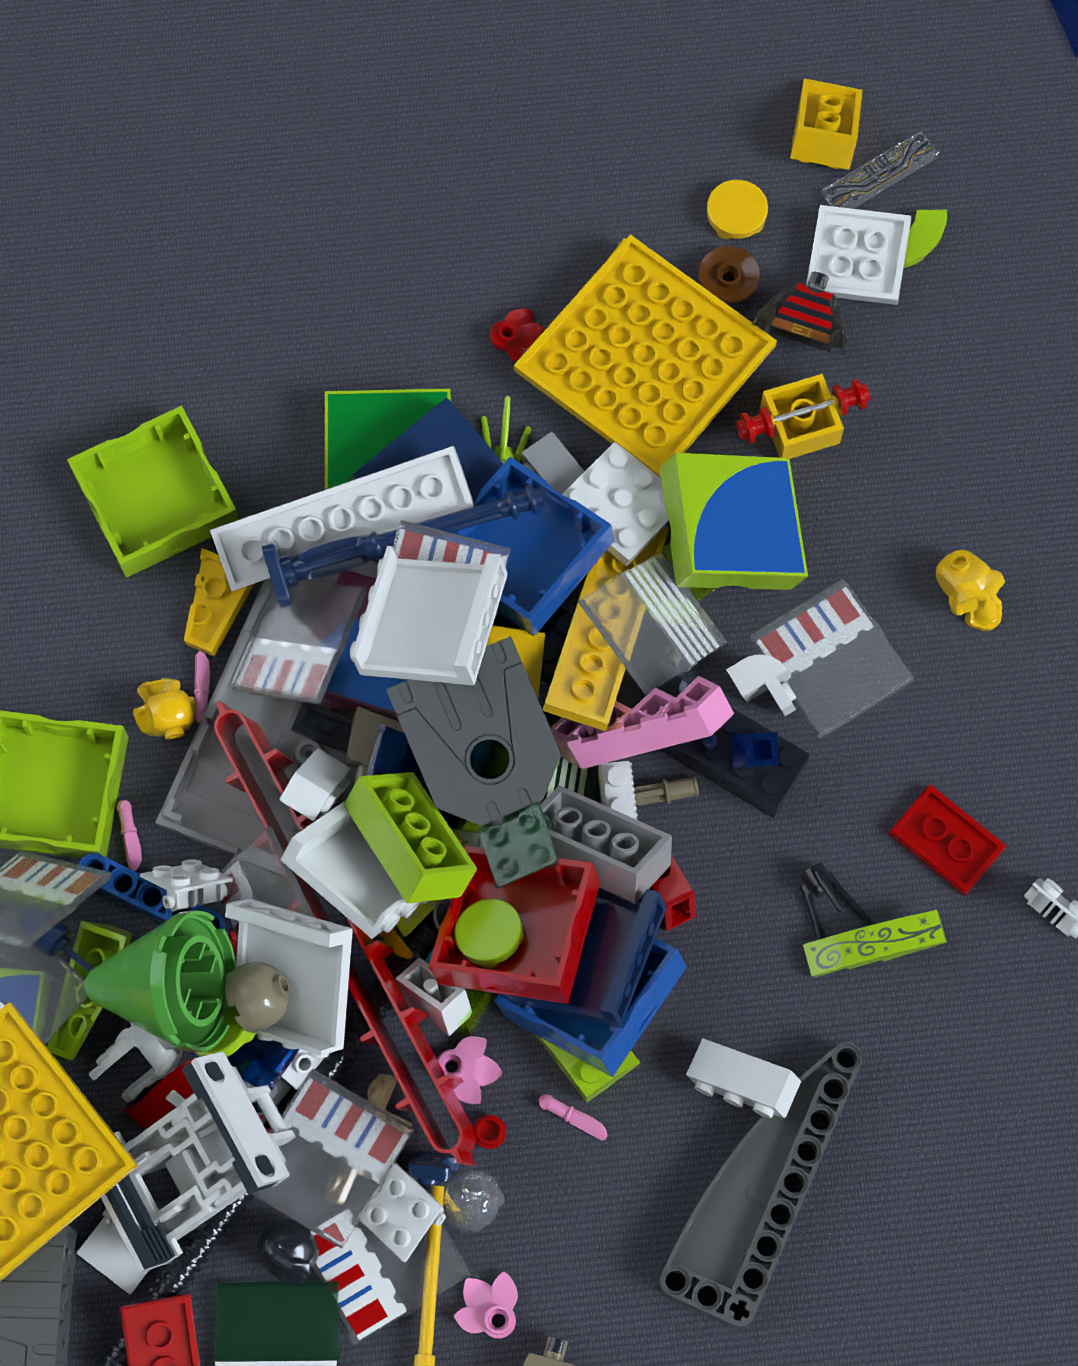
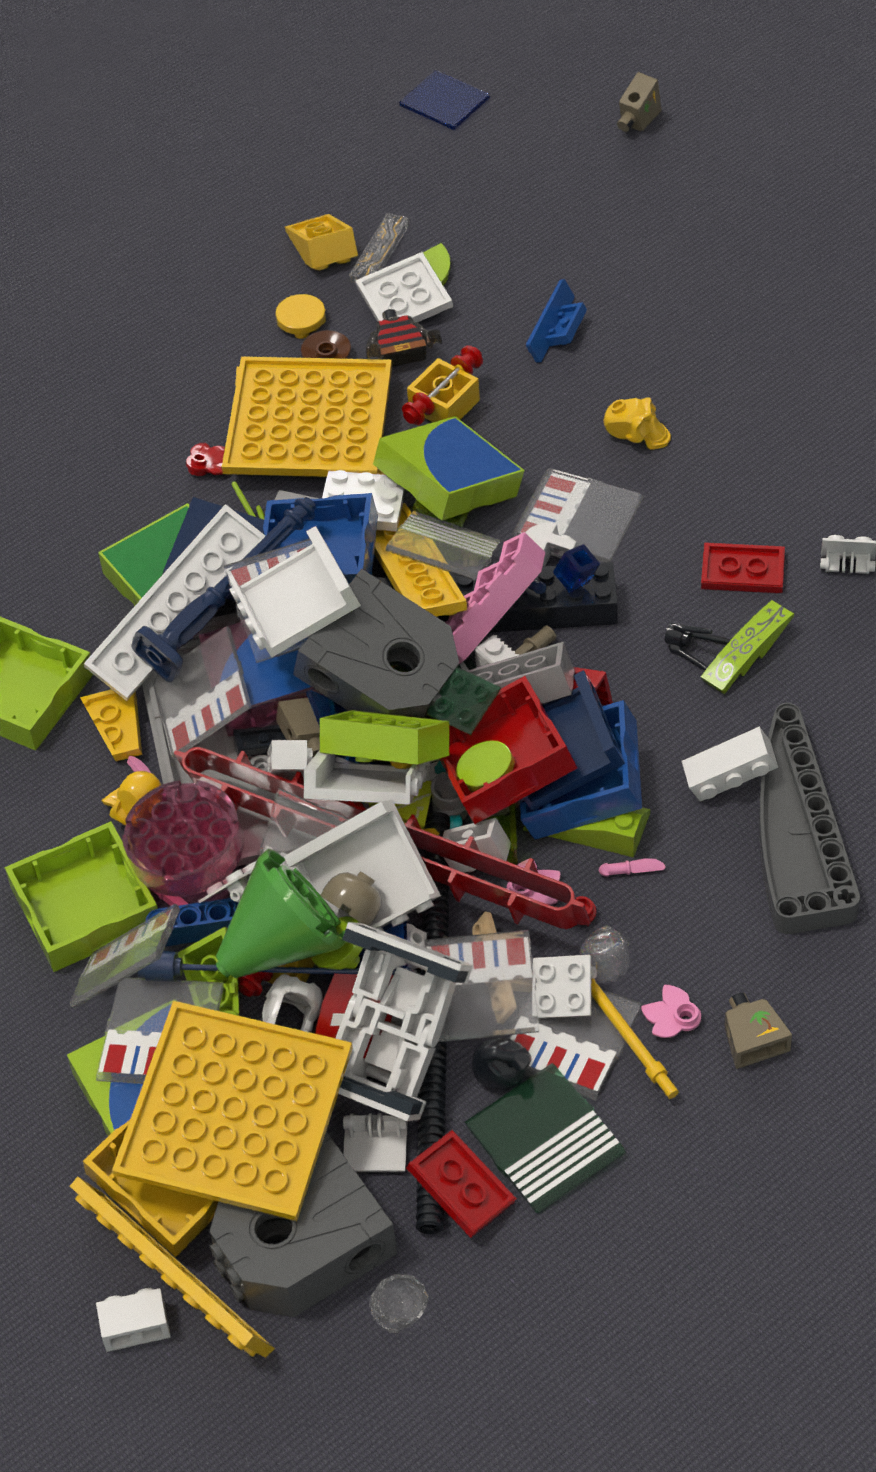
camera: 30 degrees left, 20 degrees down
(184, 827) = (183, 838): none -> clear pink brick
(432, 1168) = (563, 945): dark blue piece -> none
(989, 398) = (557, 322): none -> blue bracket

